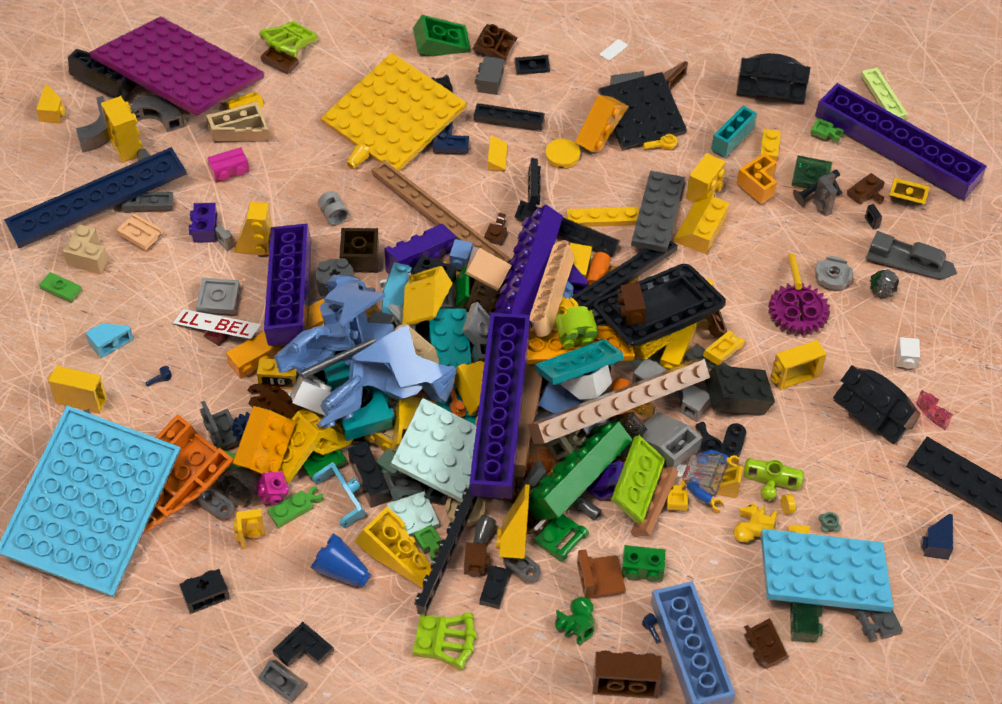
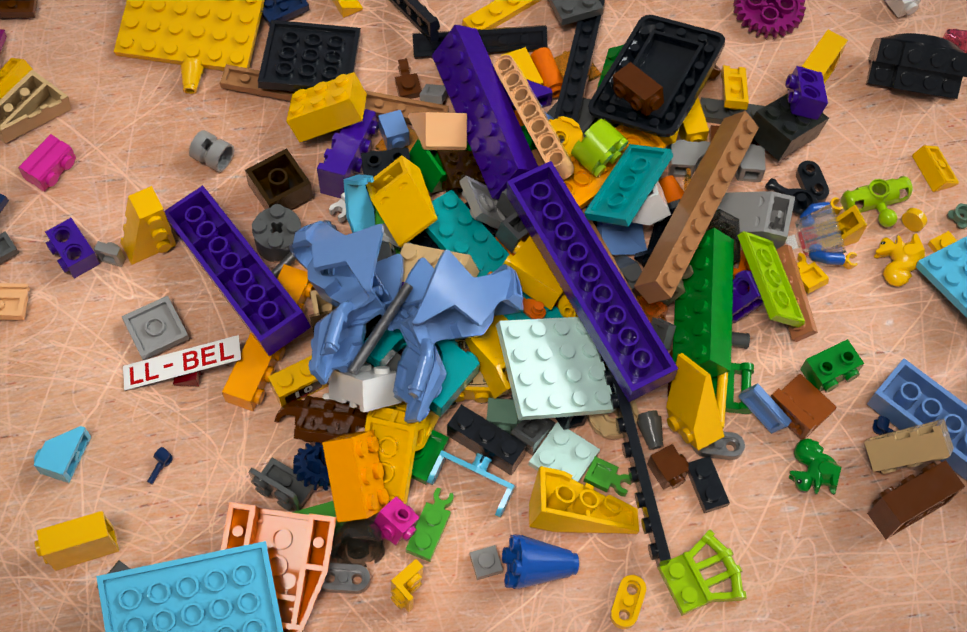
camera: 35 degrees left, 10 degrees up
(310, 547) = (486, 562): none -> light grey plate
(381, 624) = (628, 603): none -> yellow plate
(423, 215) = (326, 107): none -> yellow brick
(441, 182) = (306, 54): none -> black plate
(506, 246) = (433, 93): none -> light grey plate
(548, 533) = (721, 396): none -> yellow bar
(569, 559) = (764, 408): none -> medium blue tile
(648, 637) = (909, 446): none -> tan wedge
(763, 372) = (806, 92): none -> dark purple brick
(837, 481) = (935, 168): none -> yellow slope

